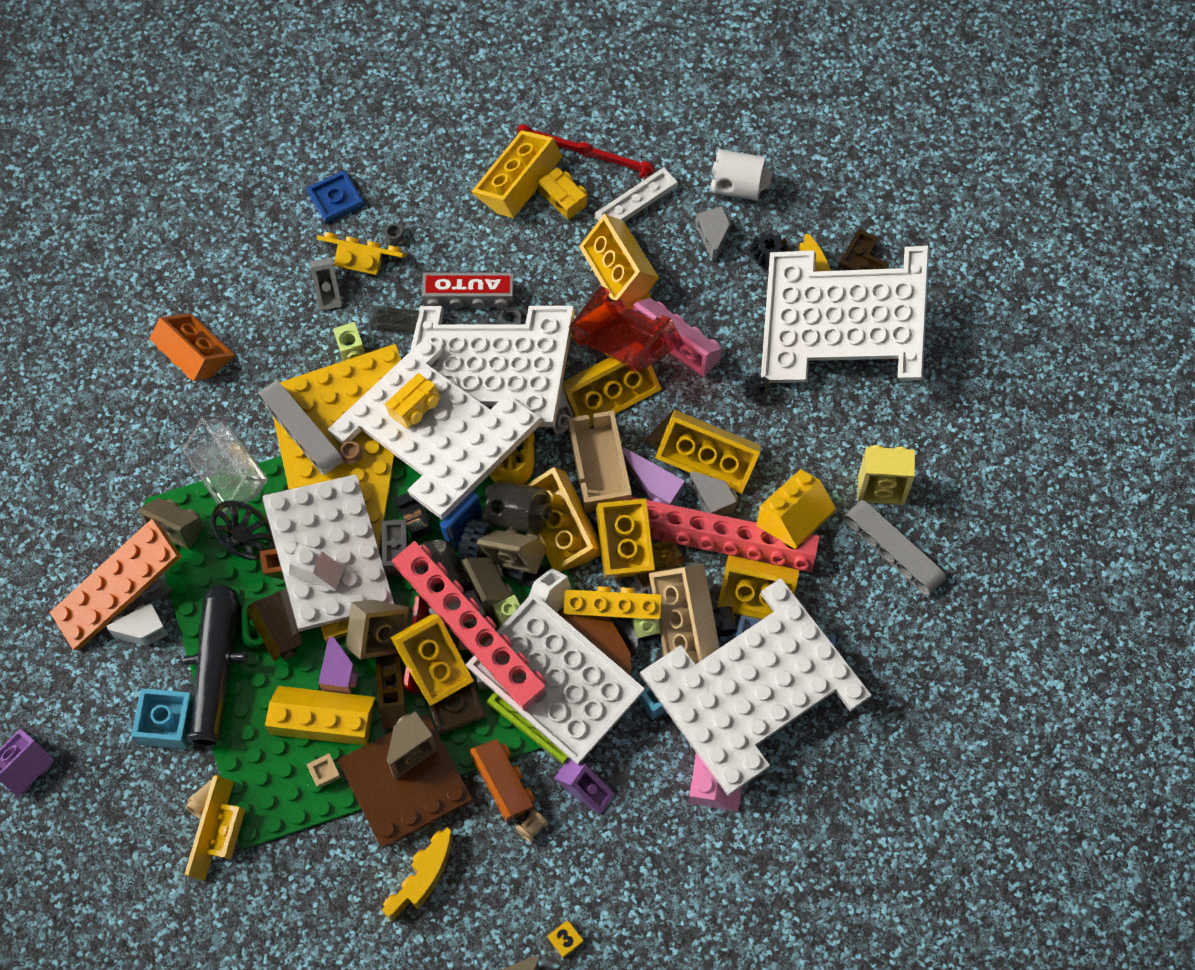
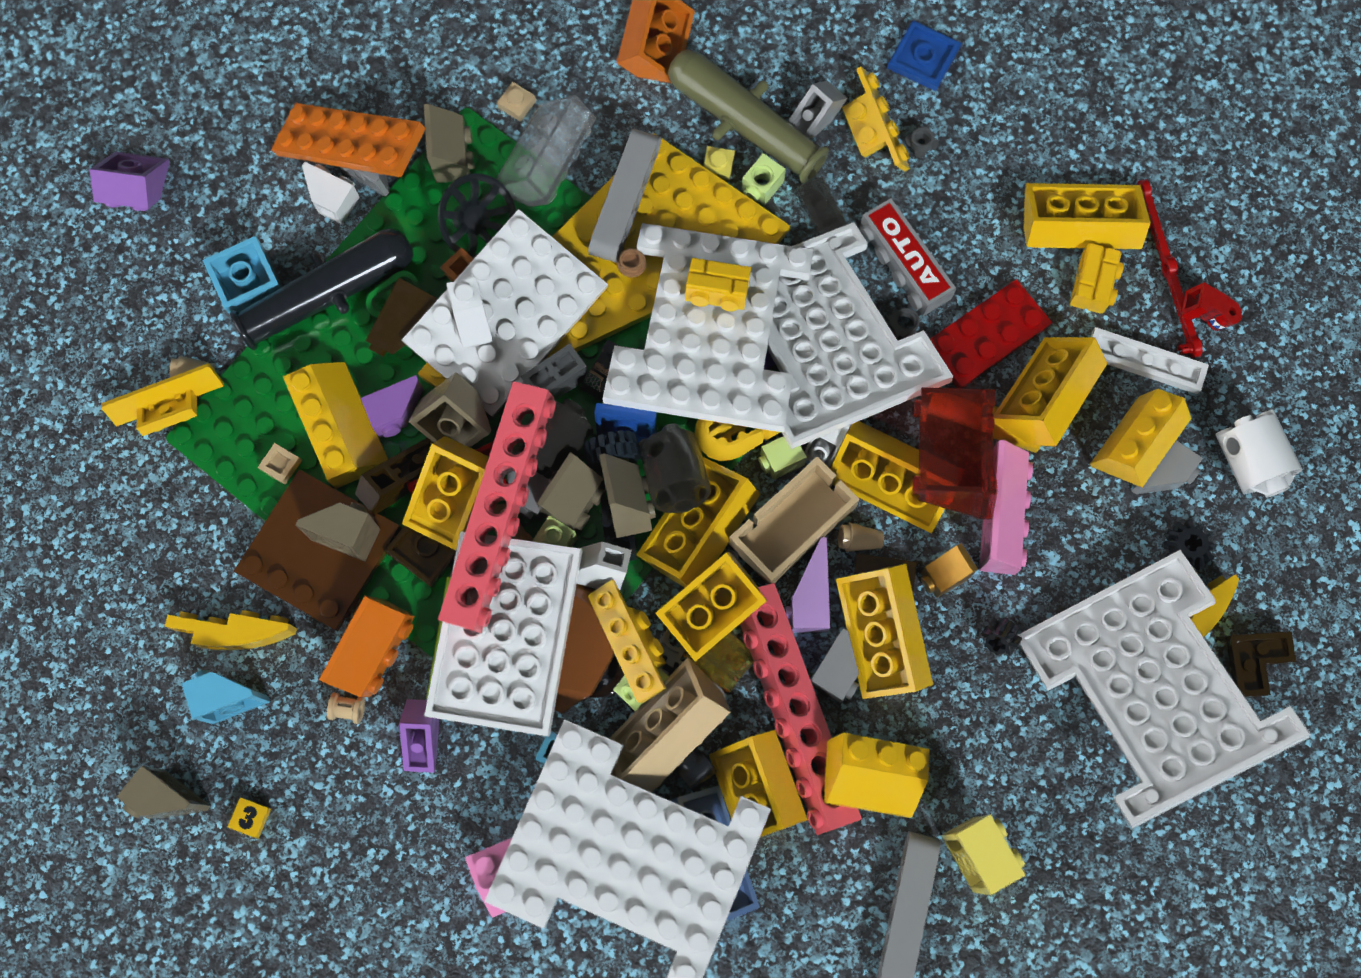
camera: 60 degrees right, 10 degrees up
(167, 464) = (516, 101): none -> tan plate
(292, 324) = (745, 113): none -> olive piece
(313, 361) = (719, 161): none -> light yellow plate
(467, 902) = (217, 698): none -> medium azure slope
(549, 444) = (780, 459): none -> yellowish green brick
(553, 271) = (990, 333): none -> red plate
(630, 141) = (1211, 306): none -> red leg
(635, 432) = (858, 538): none -> tan cone
(684, 230) = (1143, 437): none -> yellow slope
(694, 389) = (948, 571): none -> pearl gold slope

